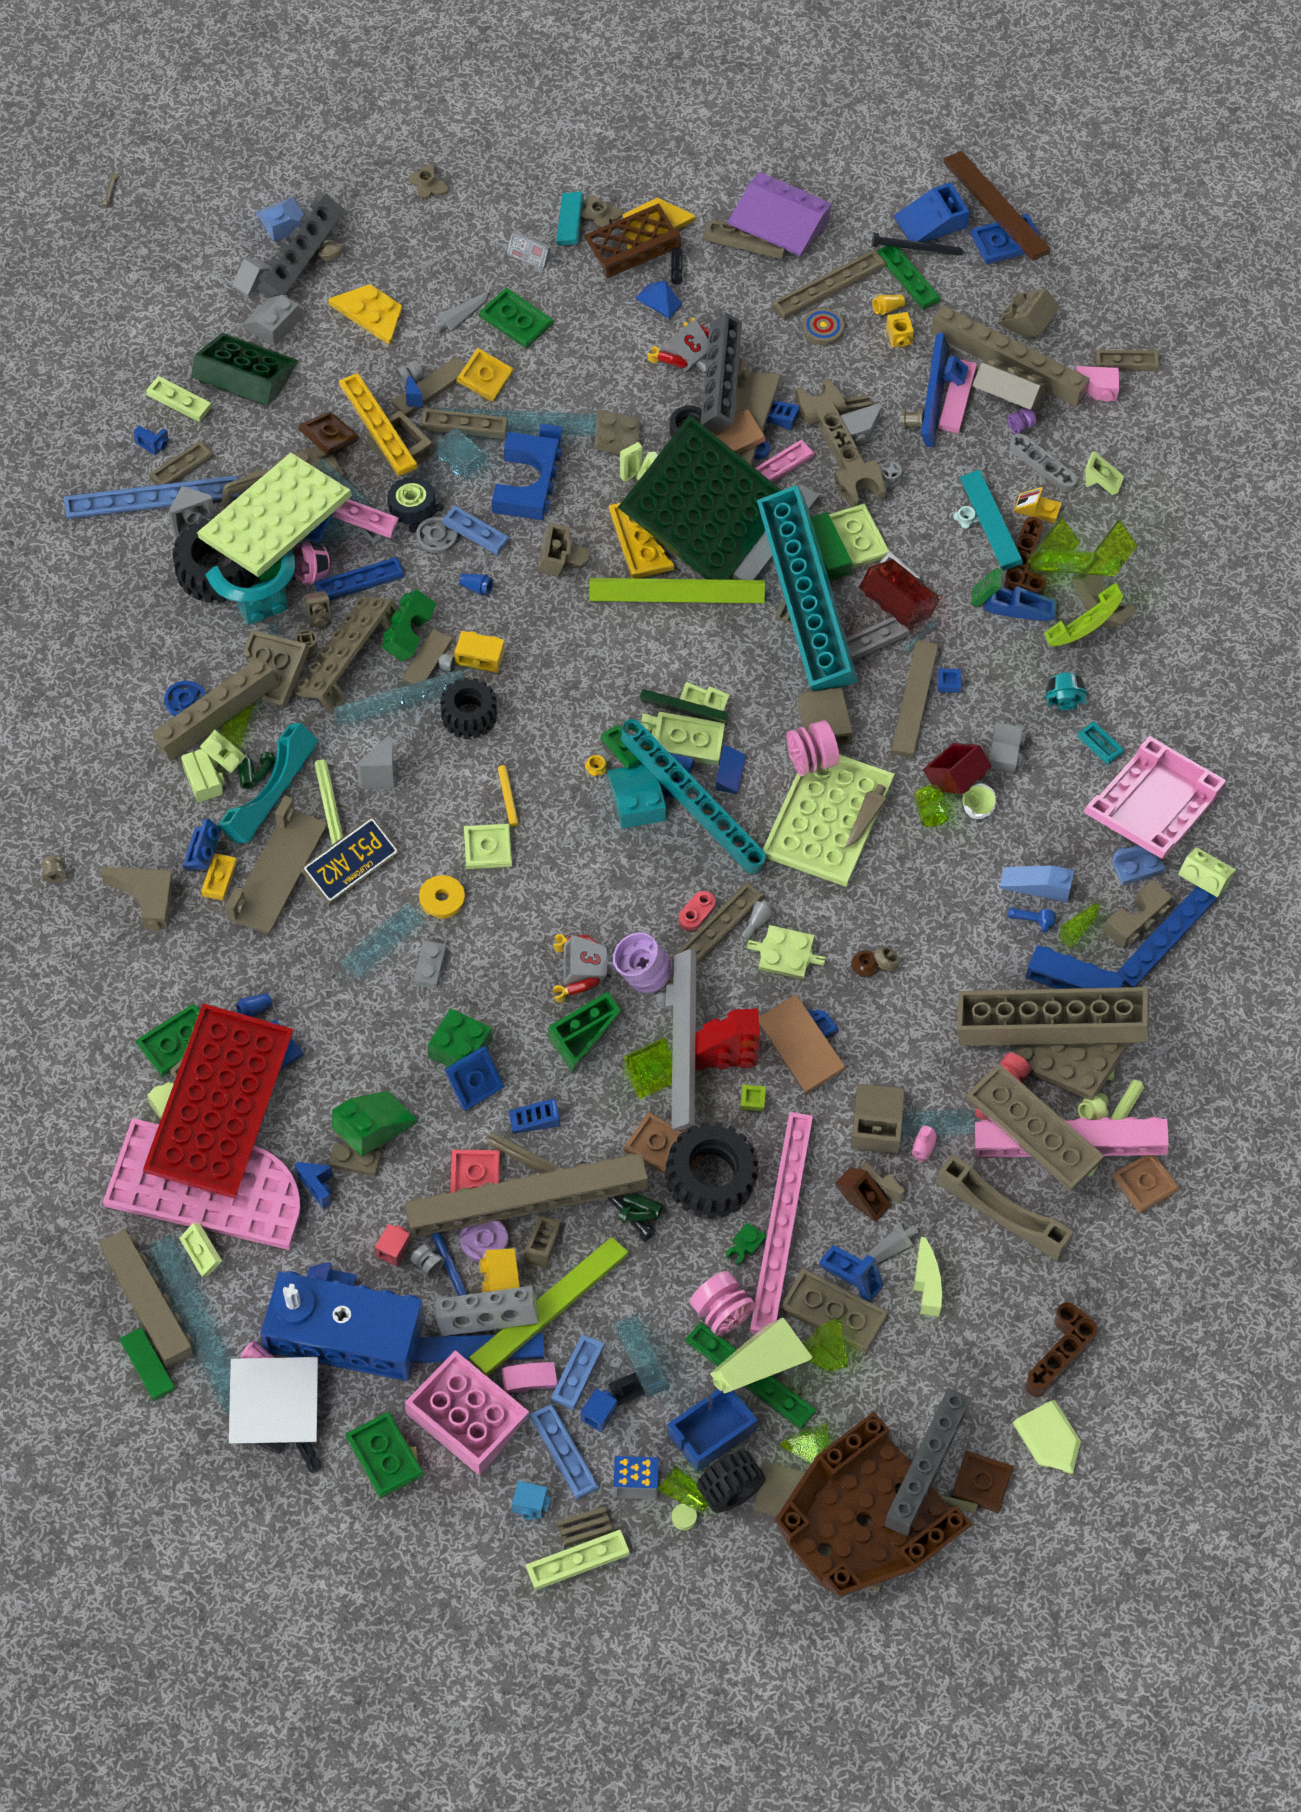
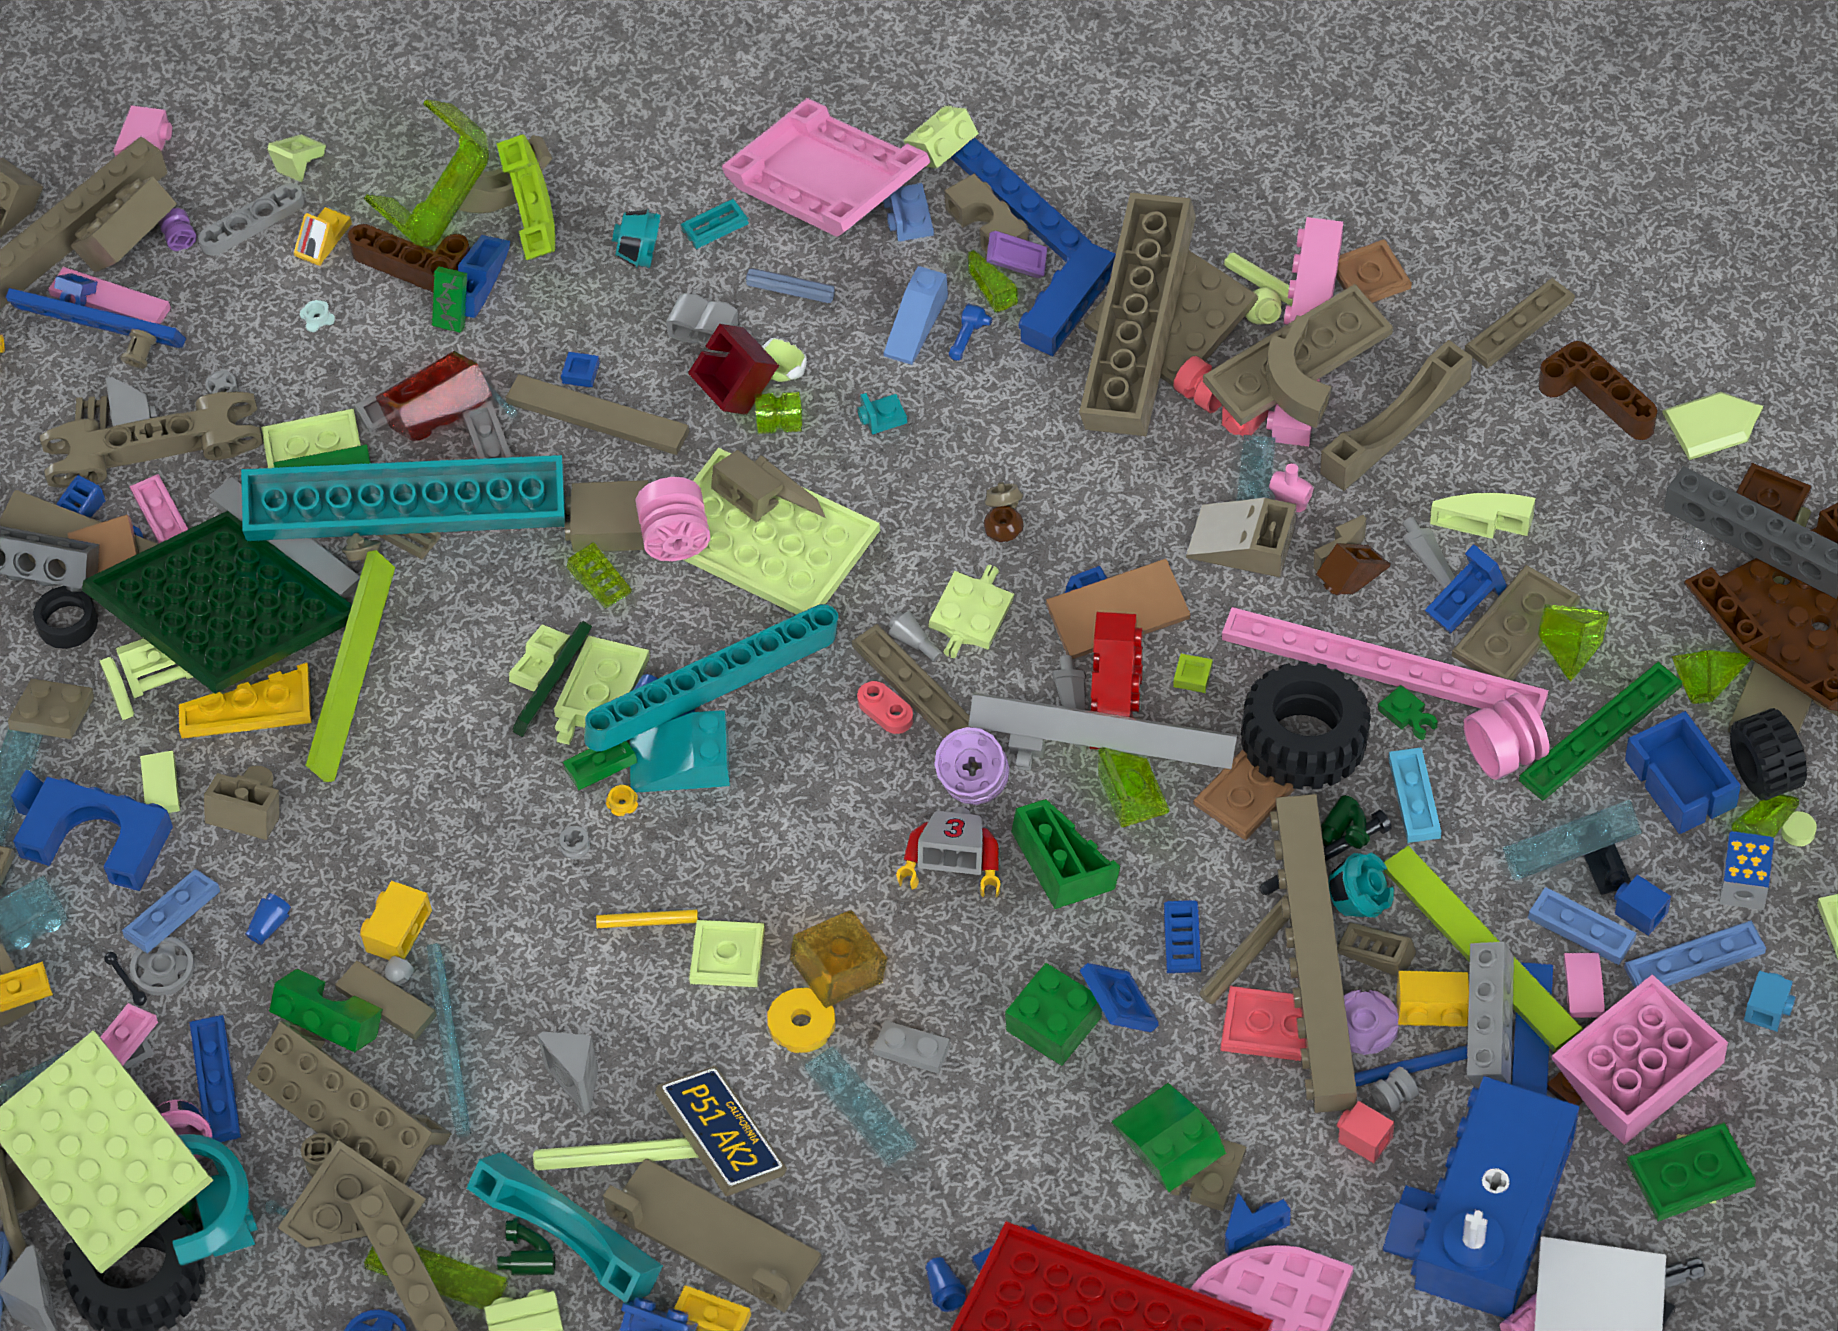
camera: 75 degrees left, 5 degrees down
(216, 744) = (502, 1278): yellowish green hips -> none
(317, 609) = (261, 1131): dark tan slope -> none
(411, 500) = (85, 973): black wheel -> none
(468, 722) = (496, 968): black tyre -> none
(482, 905) = (838, 958): none -> clear yellow brick
(554, 744) = (580, 849): none -> light grey bush
(572, 505) = (160, 780): none -> yellowish green tile
(581, 1517) = (1800, 921): dark tan tile -> none
(583, 1221) = (1360, 886): none -> teal cone
(672, 1252) = (1414, 795): none -> medium azure plate
(730, 770) = (665, 641): blue slope -> none
(763, 1355) = (1600, 690): yellowish green slope -> none
(771, 578) = (358, 547): none -> dark tan hat
(782, 705) = (592, 553): none -> clear neon green slope
(858, 792) = (745, 485): none -> dark tan hinge
(948, 872) = (881, 413): none -> teal bracket
(991, 520) = (337, 282): teal tile -> none
(1003, 1113) = (1289, 387): none -> dark tan arch
(1052, 798) = (790, 285): none -> sand blue axle
(1103, 935) = (1016, 254): none -> medium lavender tile
(1119, 1292) = (1519, 323): none -> dark tan tile
(1128, 359) = (109, 105): dark tan tile -> none

